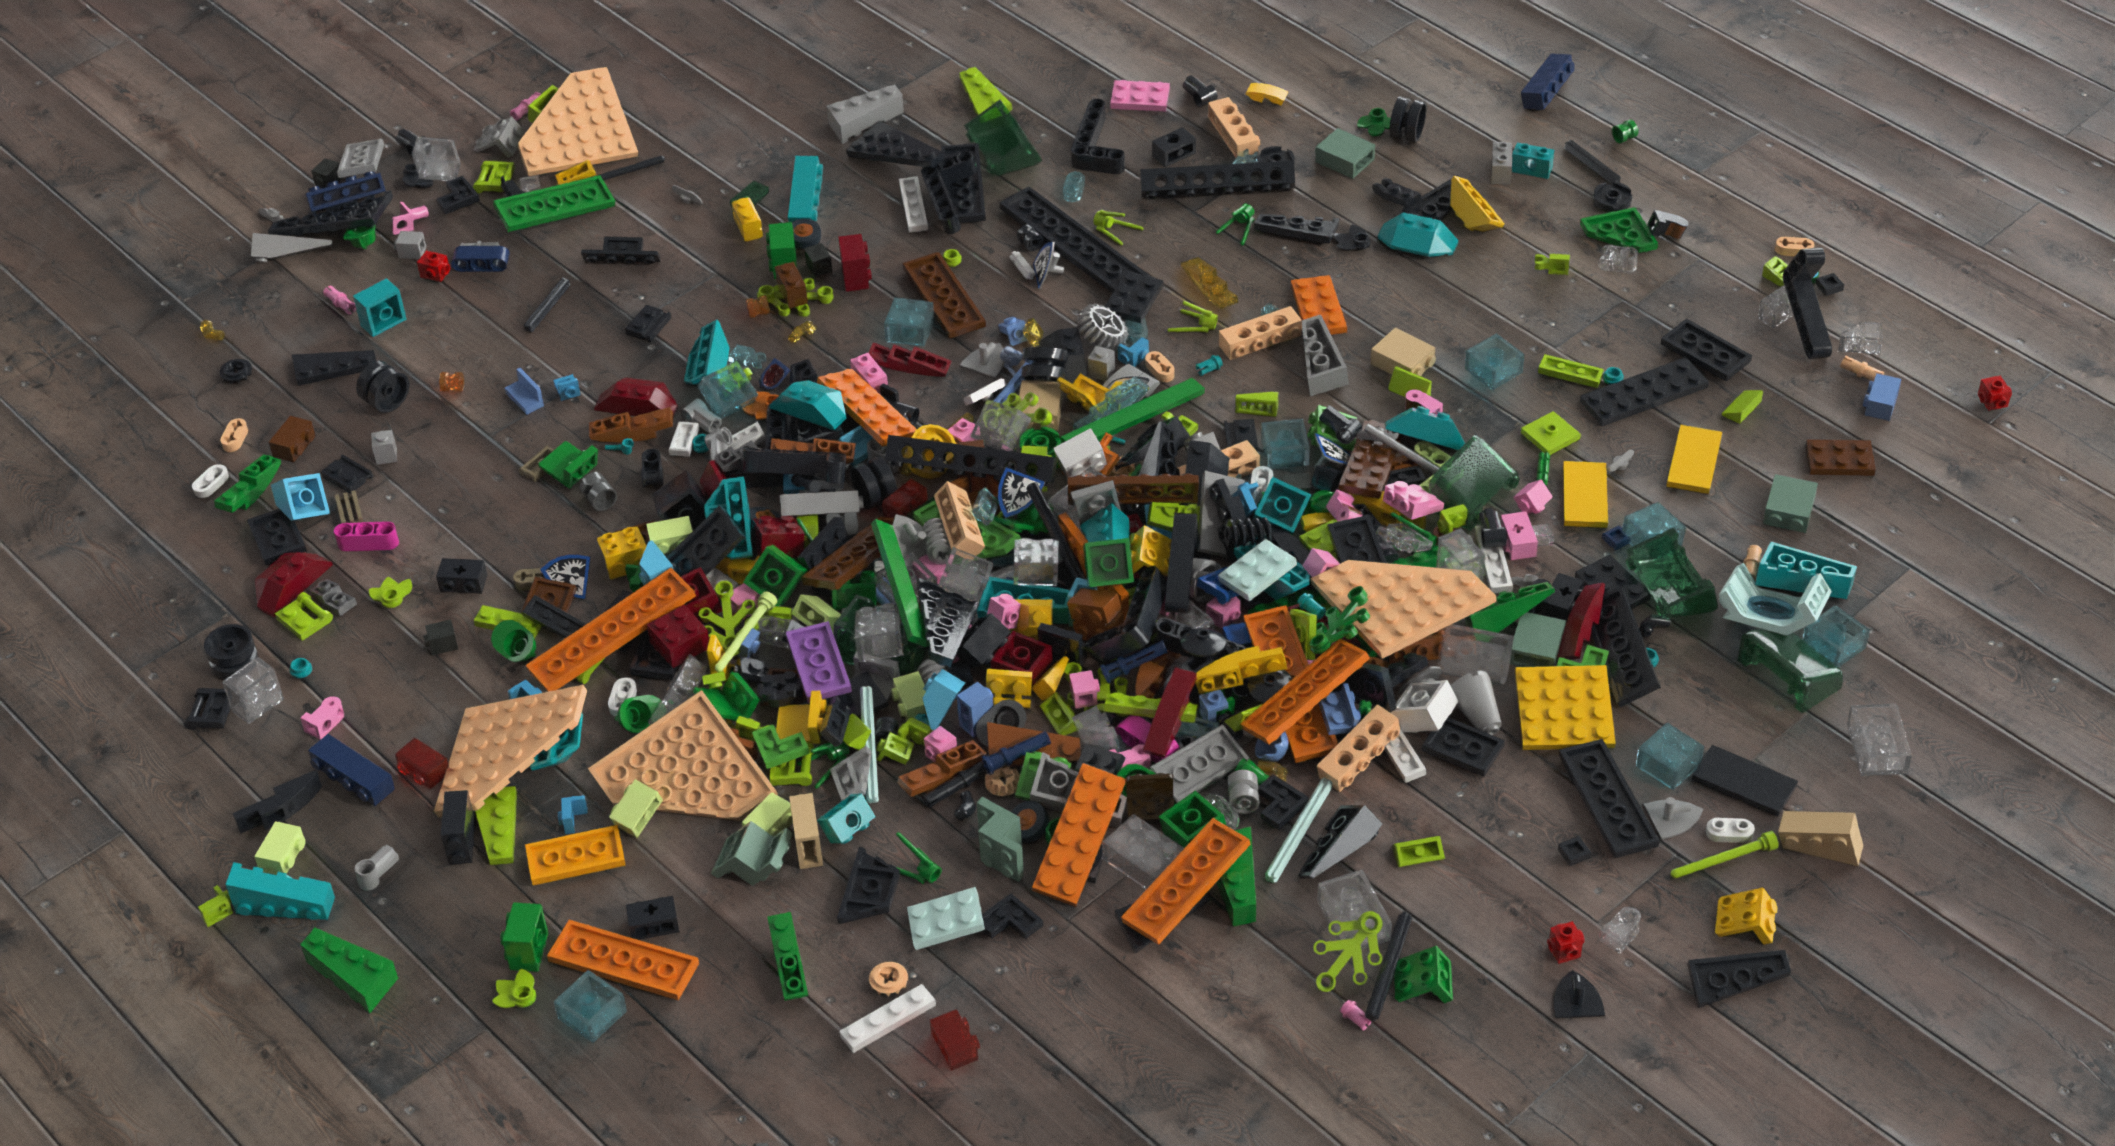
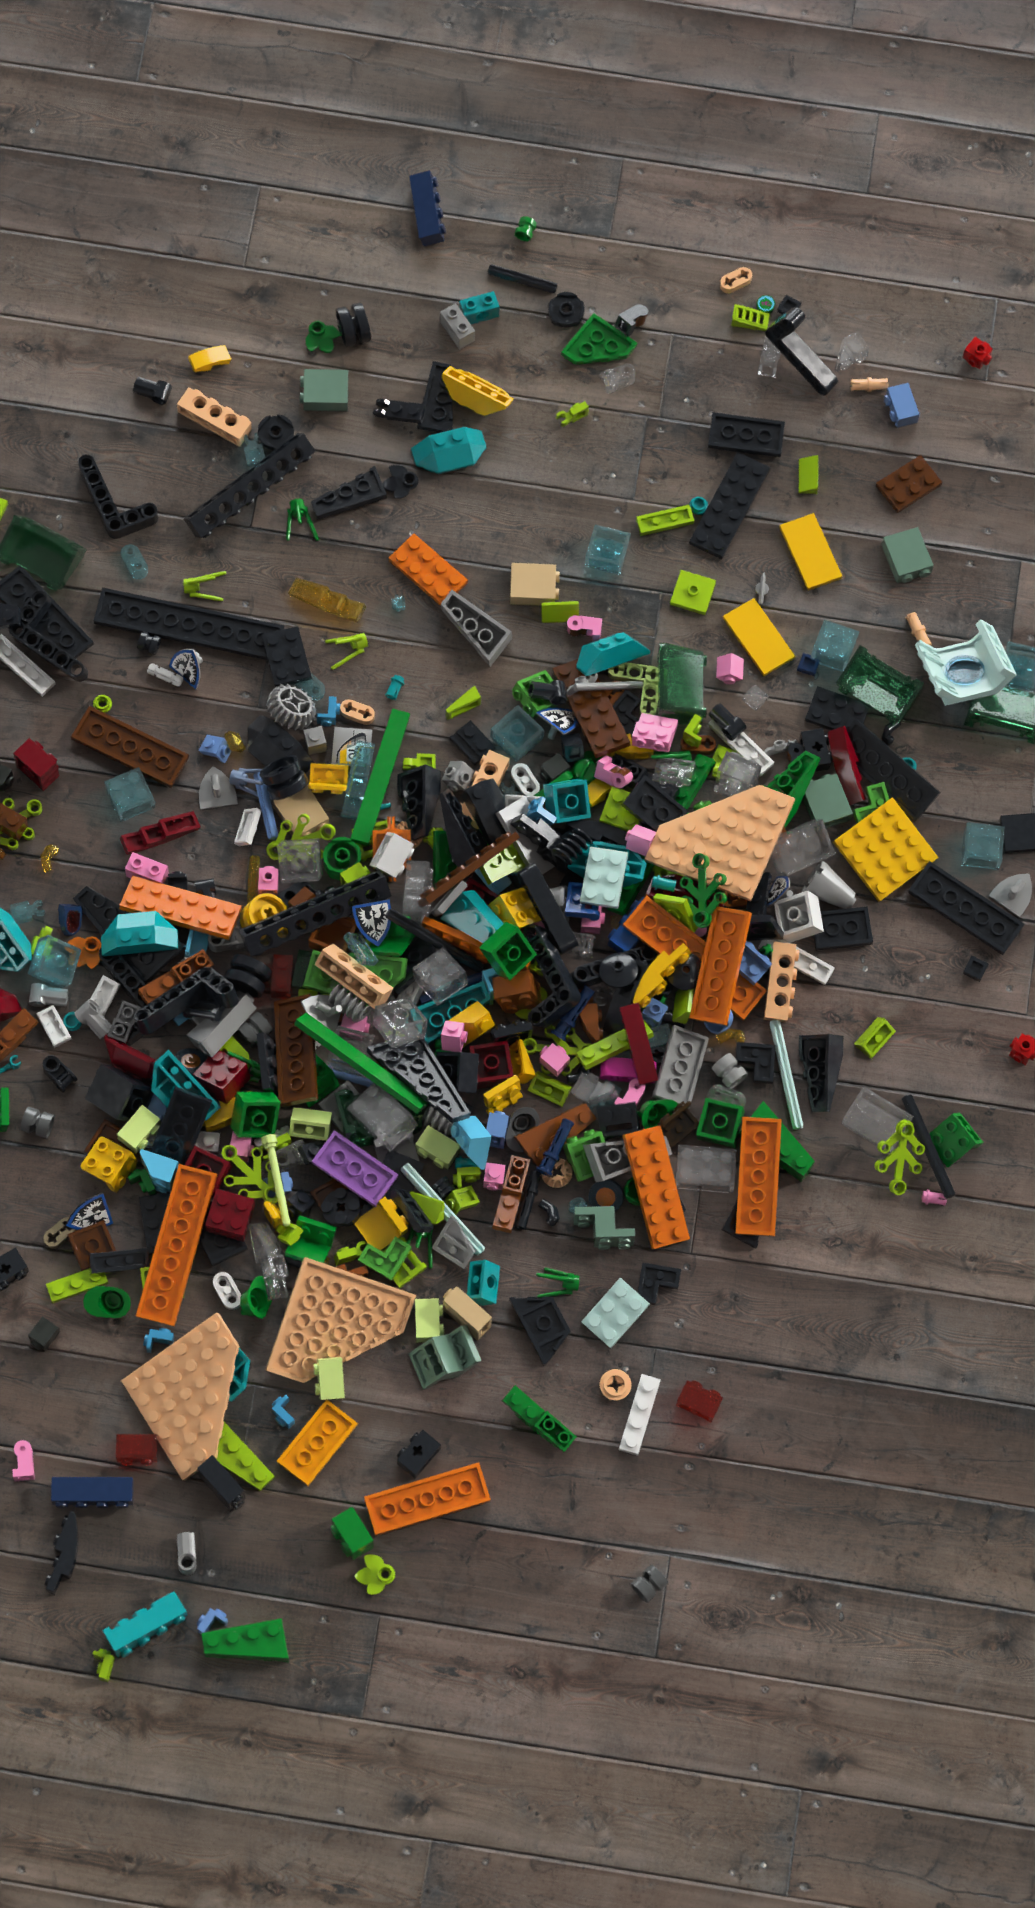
camera: 45 degrees left, 25 degrees up
(280, 848) = (103, 1588): yellowish green brick -> none
(338, 928) = (205, 1622): none -> medium blue bracket
(590, 1006) = (443, 1551): clear light blue brick -> none
(1140, 95) = (104, 423): bright pink plate -> none
(1173, 147) = (182, 478): black brick -> none
(1251, 766) = (719, 1049): green cone -> none
(1260, 333) = (419, 604): light nougat brick -> none
(1520, 536) = (740, 702): bright pink brick -> none
(1543, 467) = (713, 632): green axle -> none
(1793, 570) = (958, 620): teal wedge -> none

